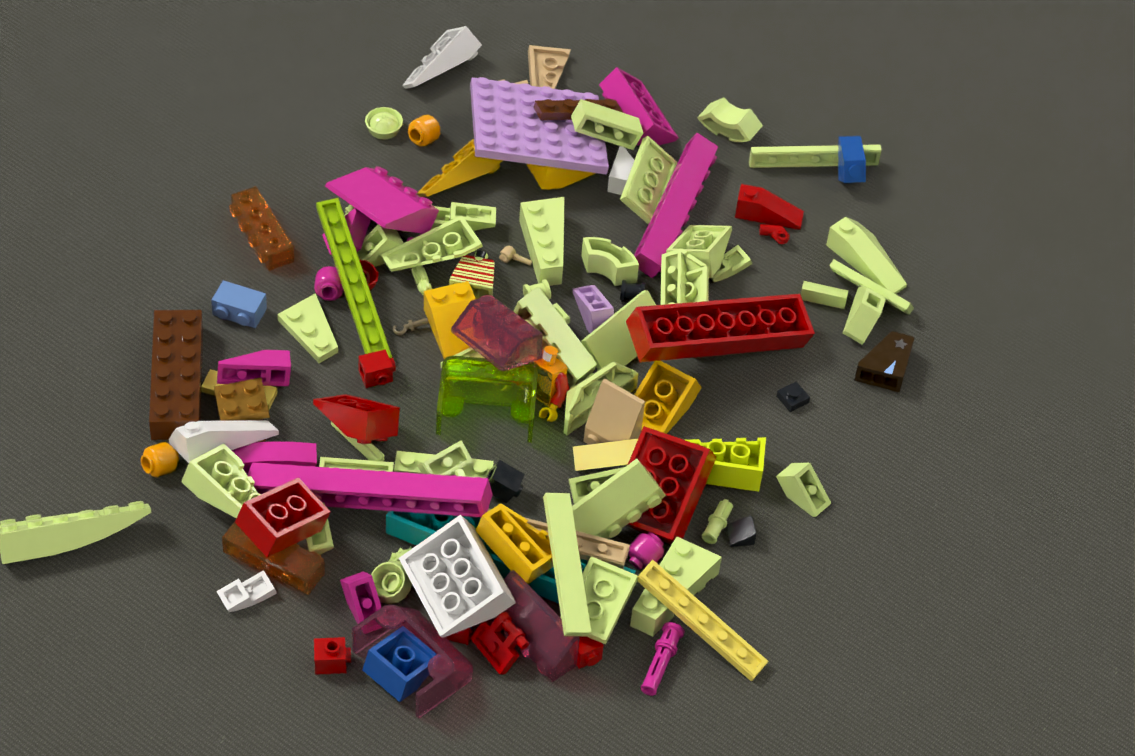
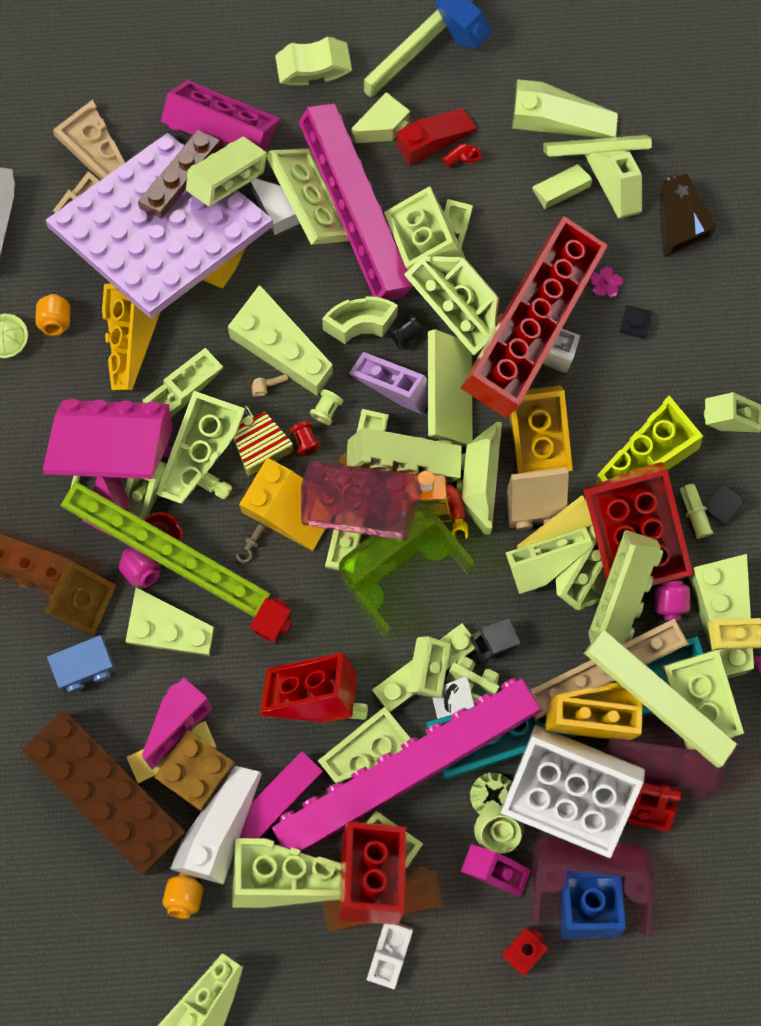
camera: 40 degrees left, 25 degrees up
(276, 269) = (80, 598): none -> pearl gold plate
(507, 293) = (305, 438): none -> red bush
(572, 460) = (544, 560): none -> yellowish green slope
(723, 371) = (562, 351): none -> white slope
(733, 175) = (381, 121): none -> yellowish green slope
(796, 363) = (606, 283): none -> dark pink plant

